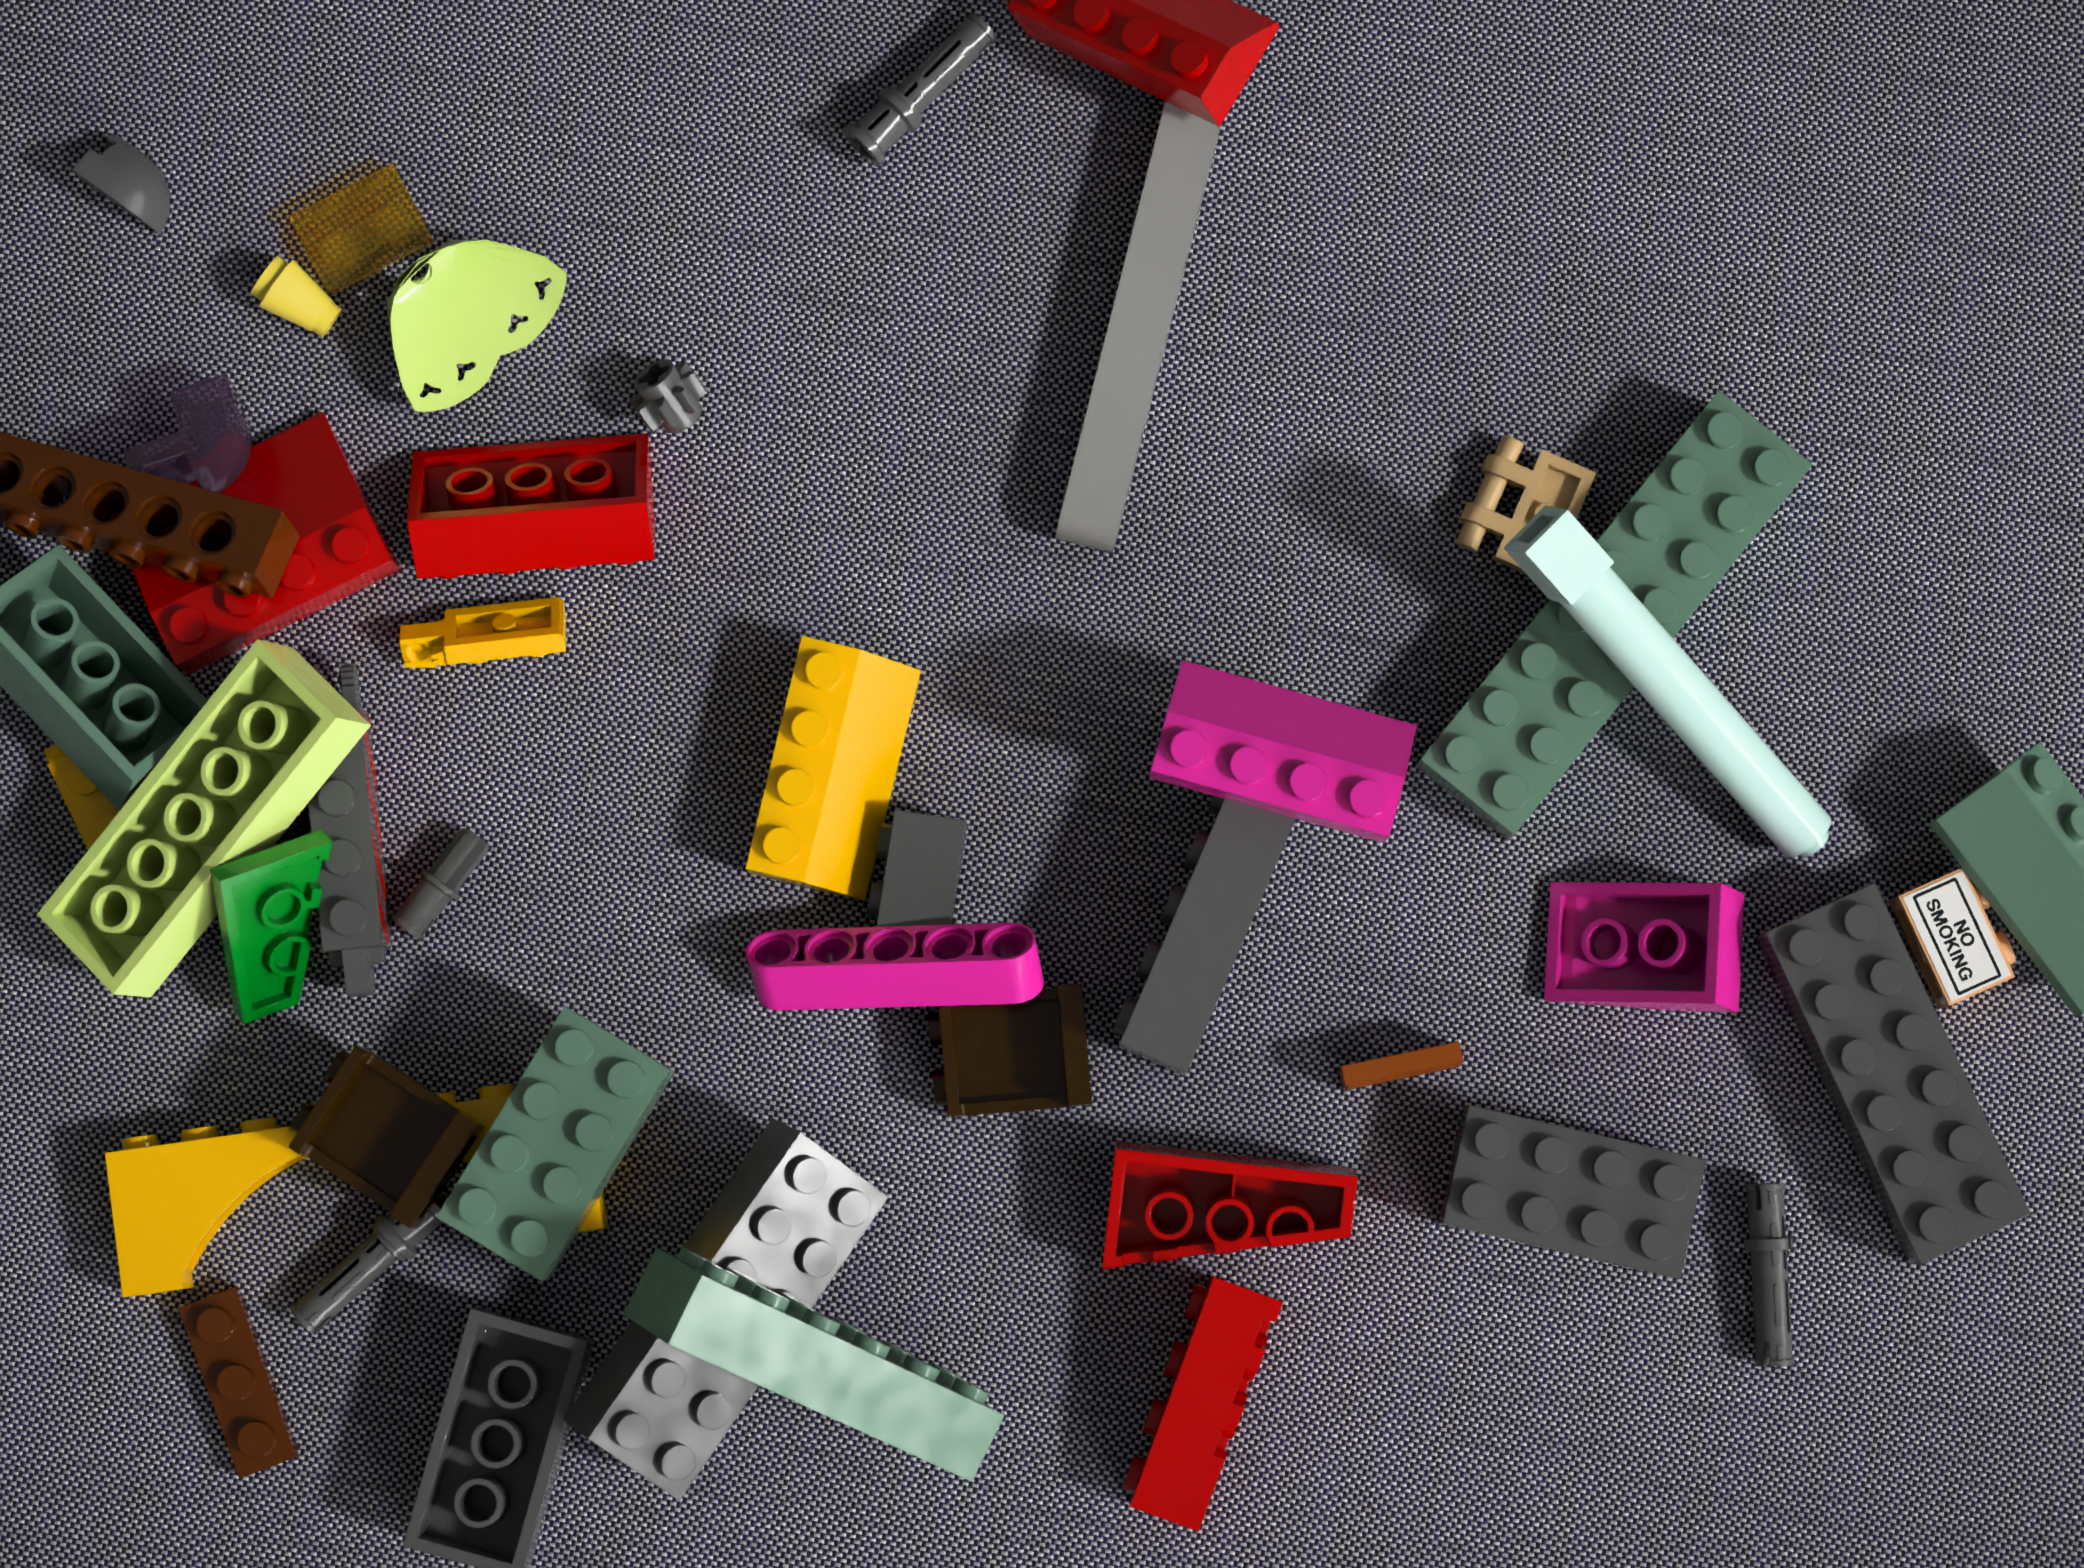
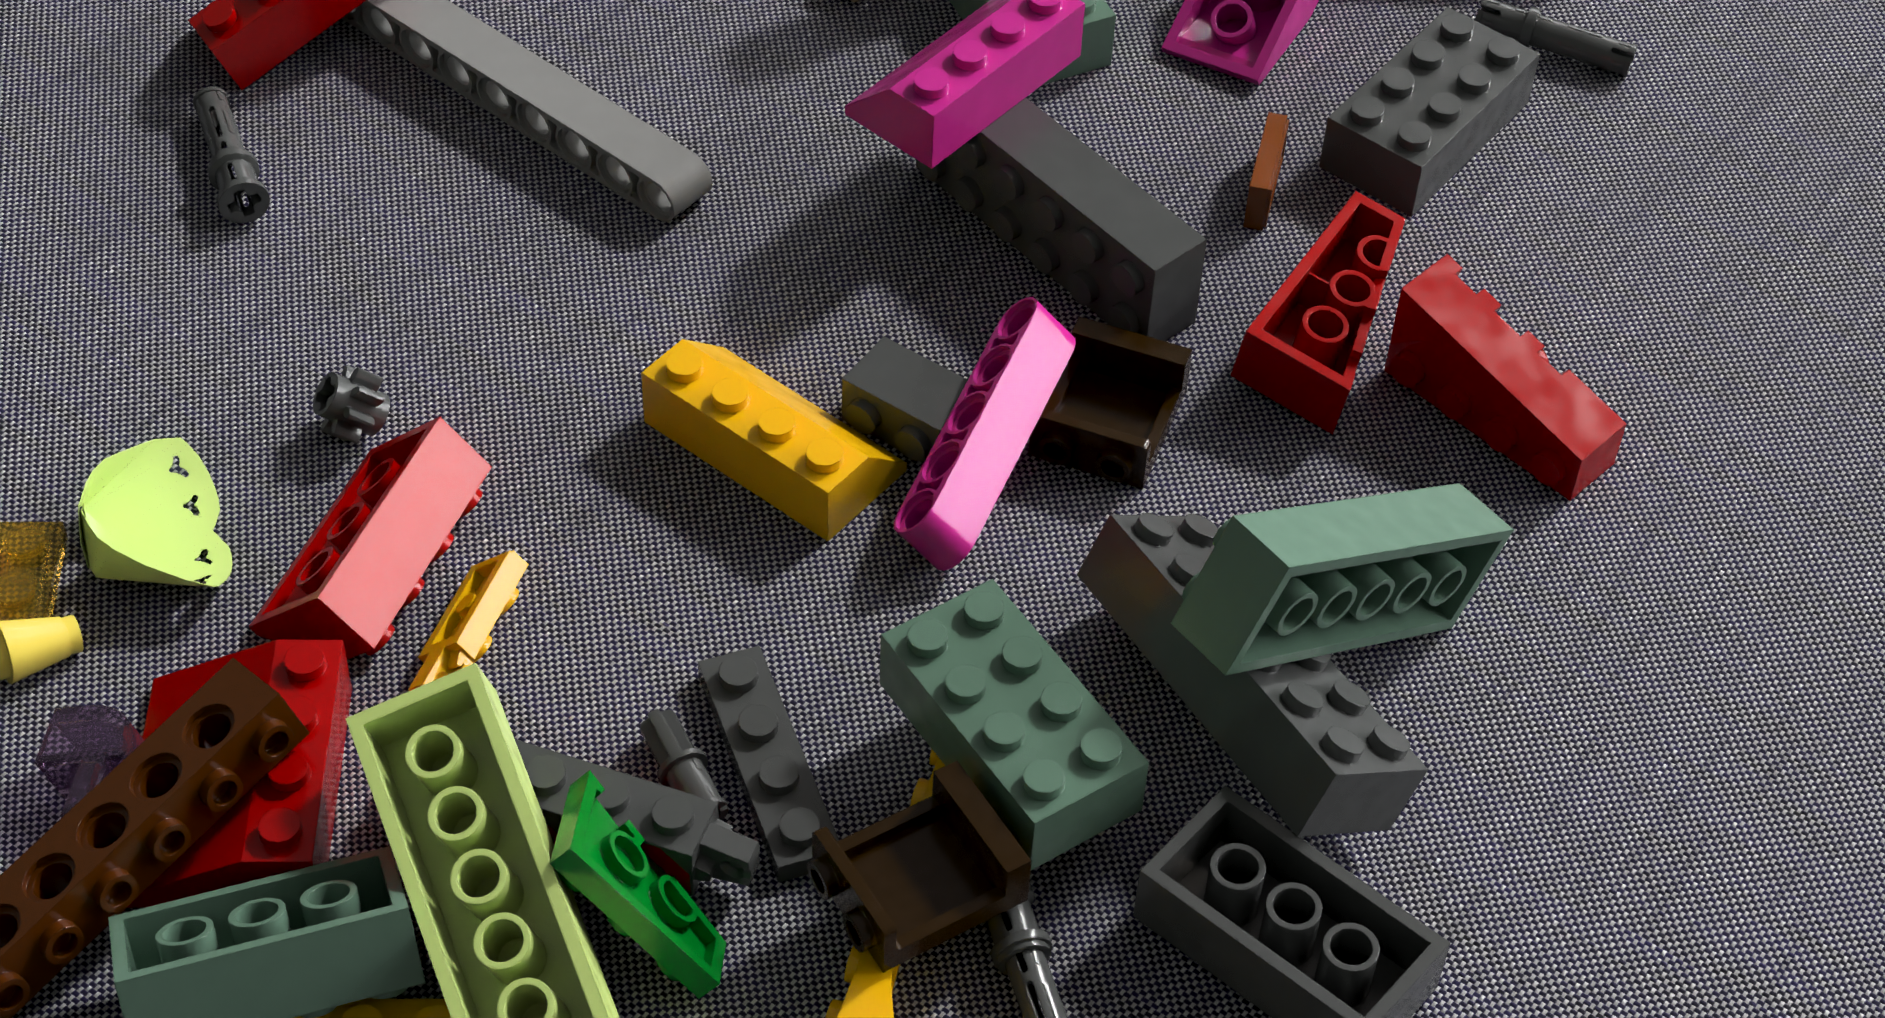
camera: 70 degrees left, 35 degrees down
(487, 946) = (766, 758): none -> dark grey plate

